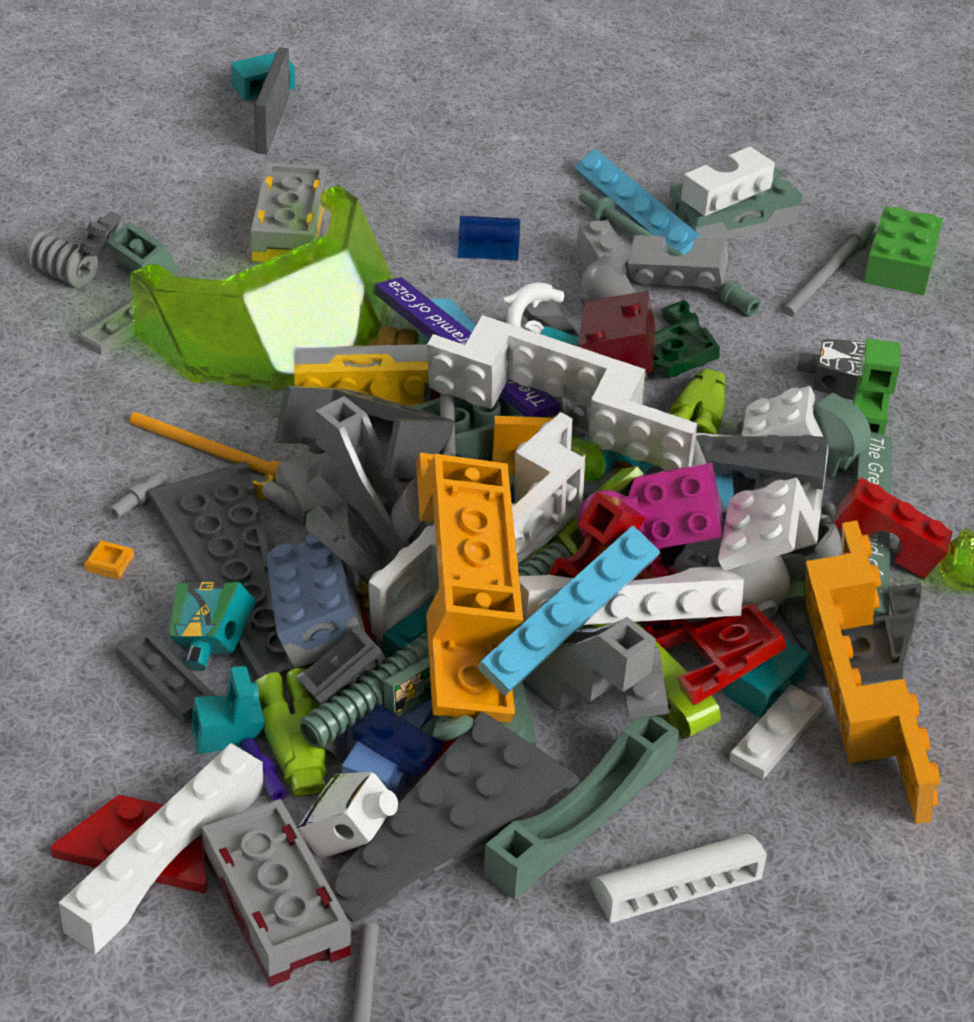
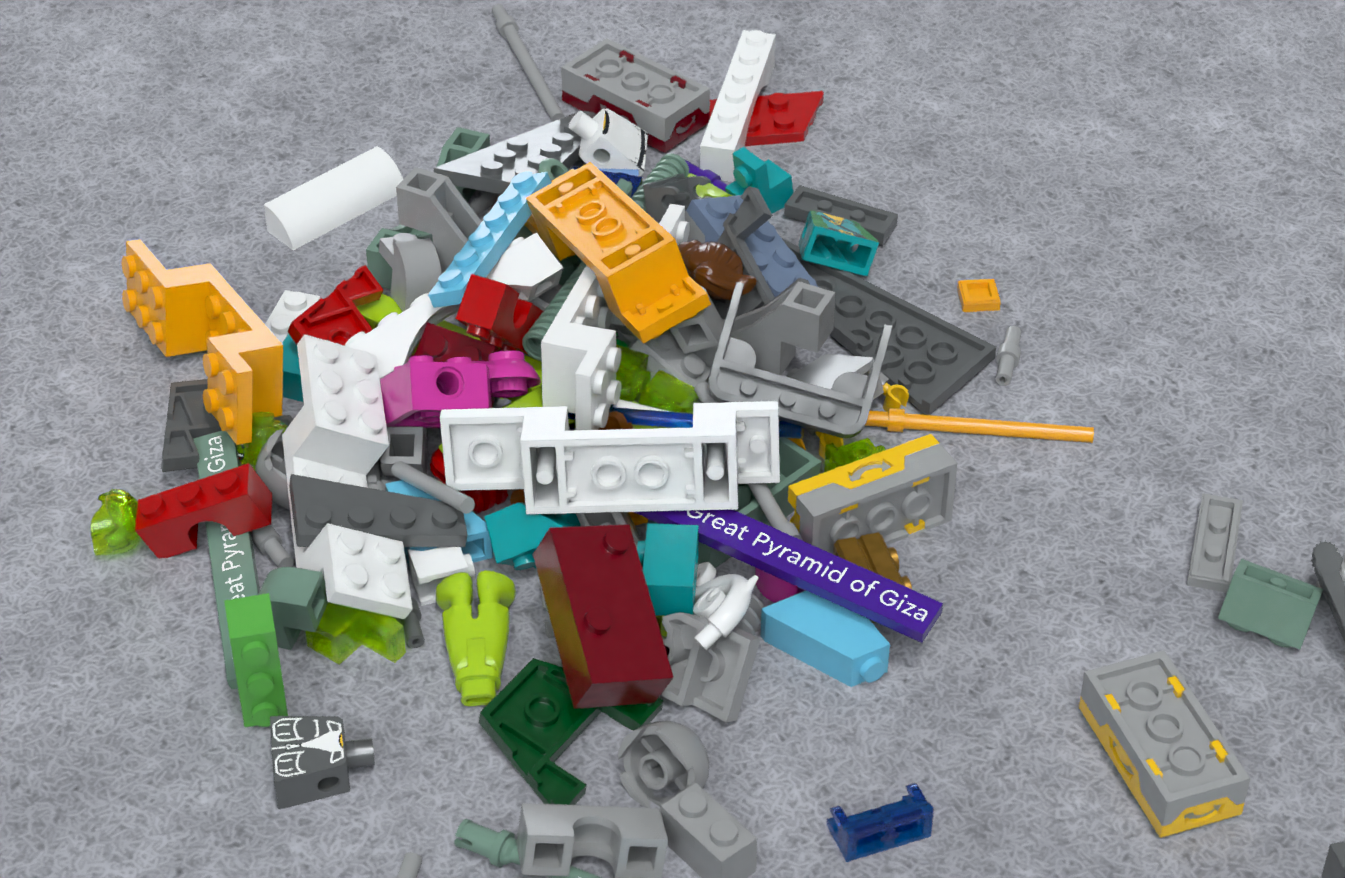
camera: 160 degrees right, 0 degrees up
(251, 322) = (992, 641): clear neon green windscreen -> none
(379, 526) = (715, 268): none -> reddish brown hair

